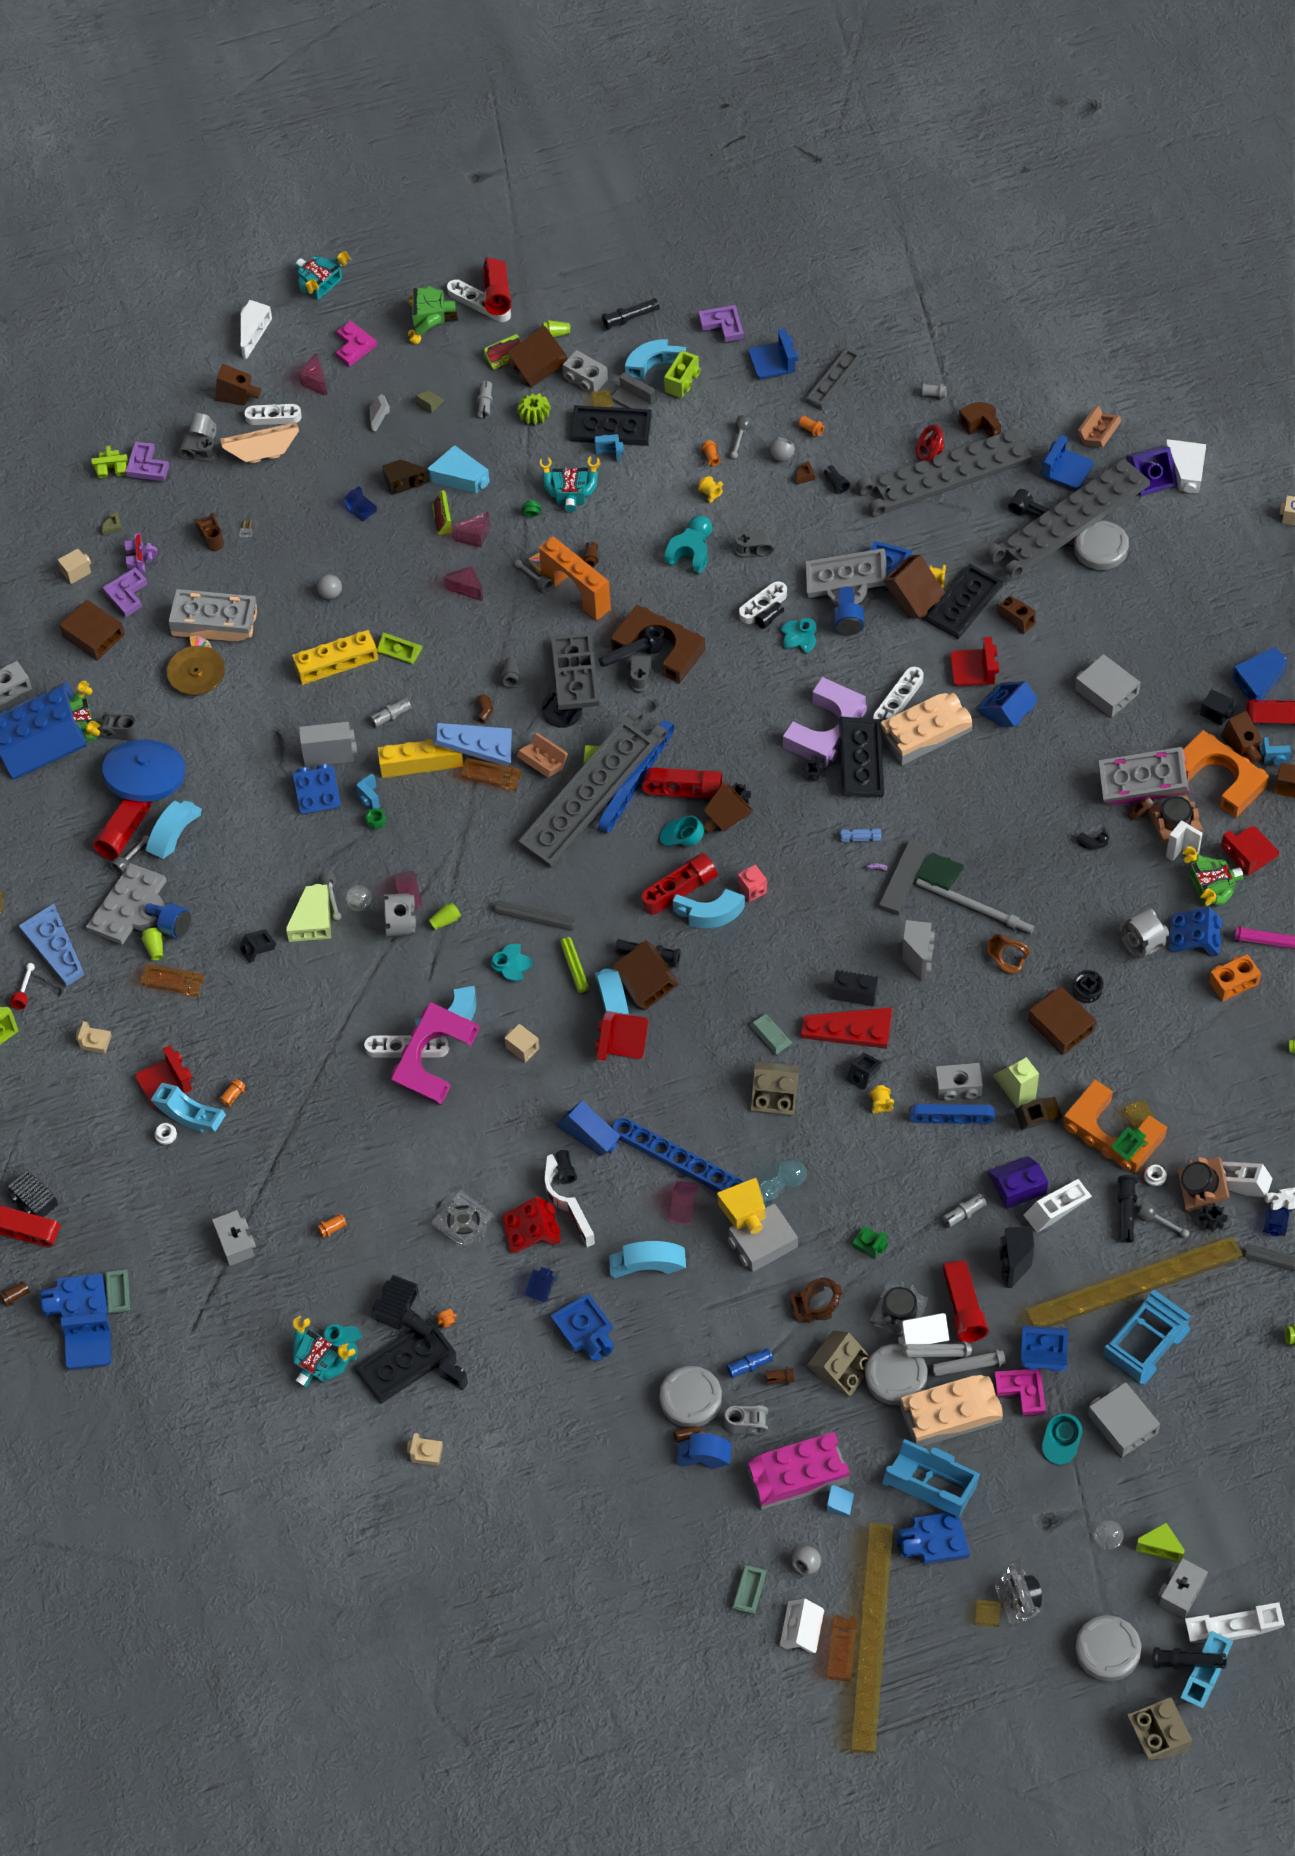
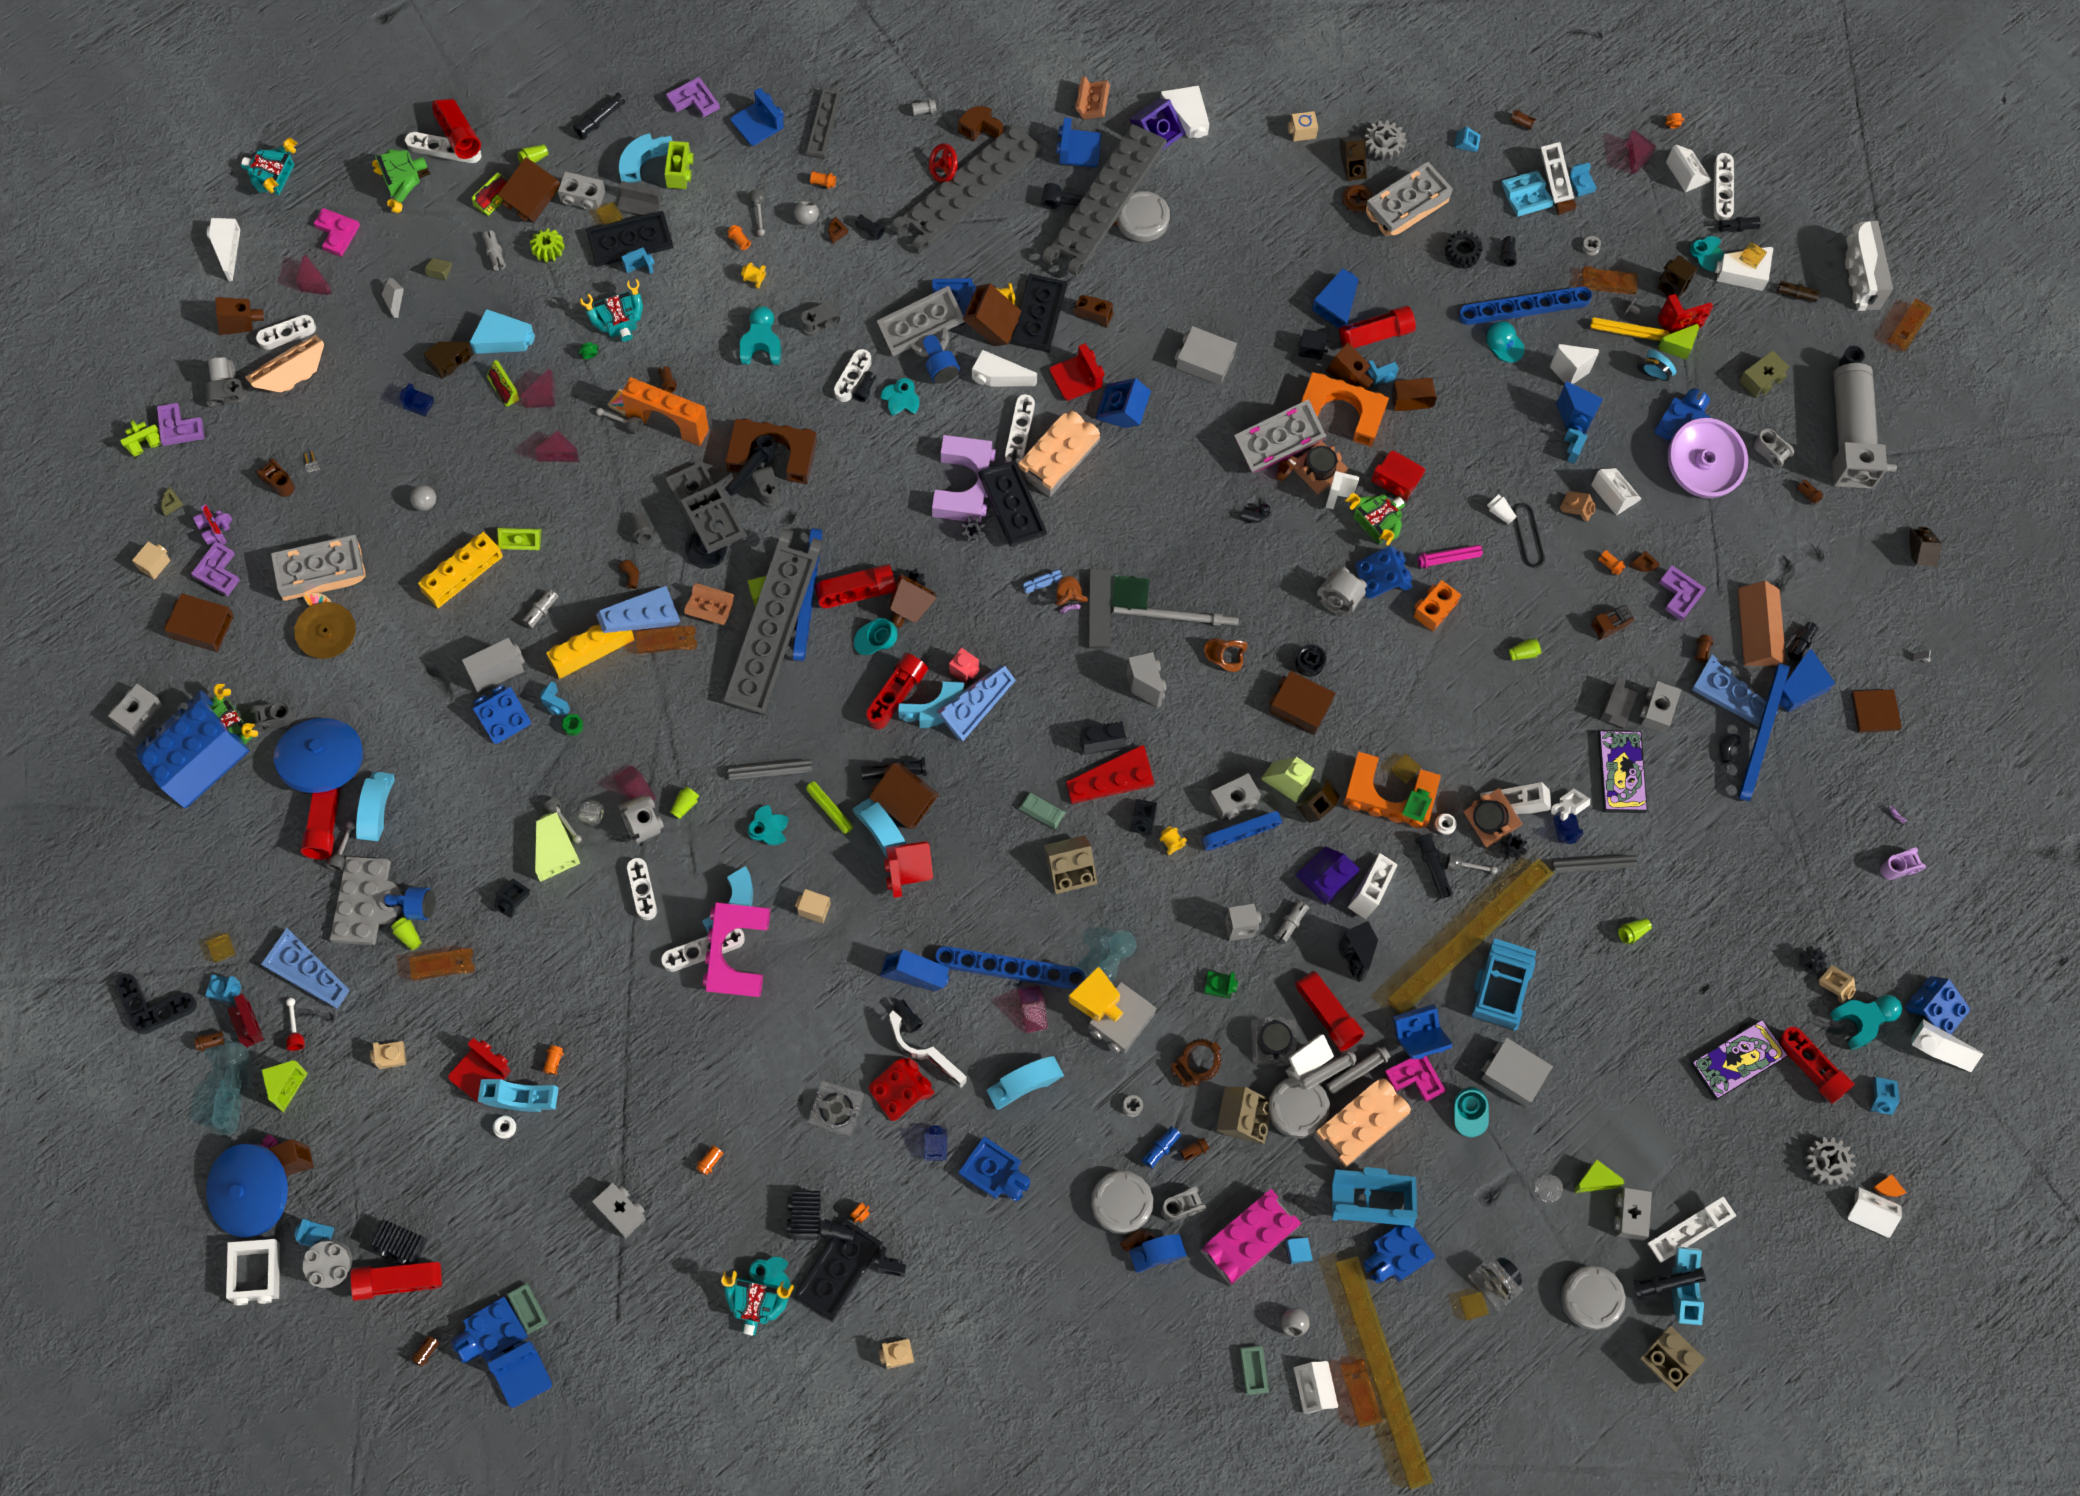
camera: 30 degrees left, 10 degrees up
(377, 985) = (633, 876): none -> white beam
(743, 1323) = (1127, 1110): none -> light grey bush
(746, 918) = (972, 705): none -> medium blue wing
(881, 849) = (1068, 589): none -> dark orange piece
(901, 640) = (1000, 372): none -> white slope
(914, 1191) = (1242, 922): none -> light grey brick

